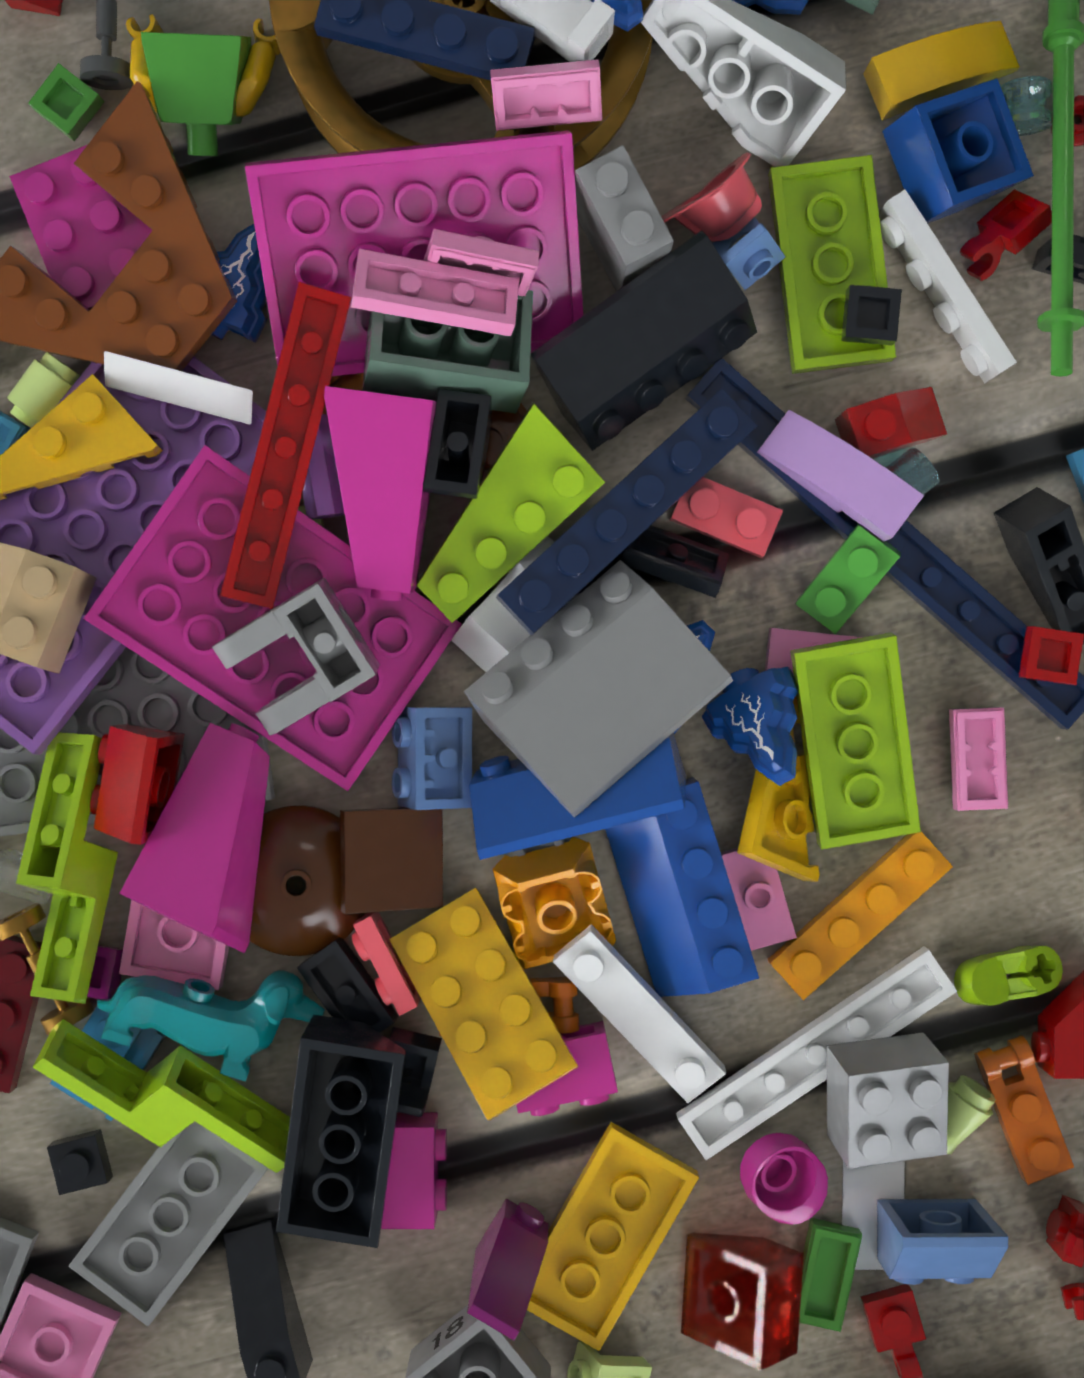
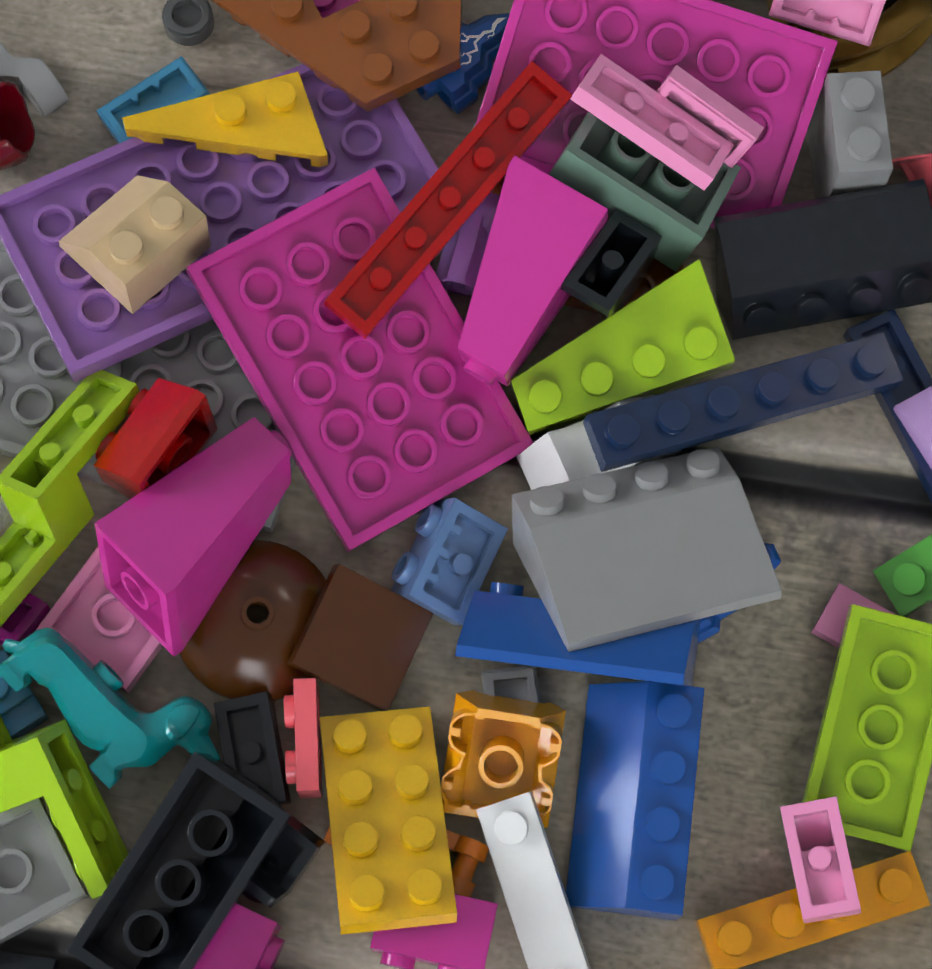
camera: 25 degrees right, 15 degrees down
(41, 389) = (241, 66): yellowish green brick -> none
(178, 387) = (371, 116): white sticker -> none
(326, 638) = (404, 384): light grey brick -> none
(677, 560) = (771, 475): black plate -> none
(728, 516) = (838, 460): coral plate -> none
(758, 719) = (789, 656): blue rock -> none
(759, 900) = (716, 846): bright pink plate -> none
(779, 822) = (777, 752): yellow wing -> none
(852, 880) = (820, 860): none -> bright pink slope

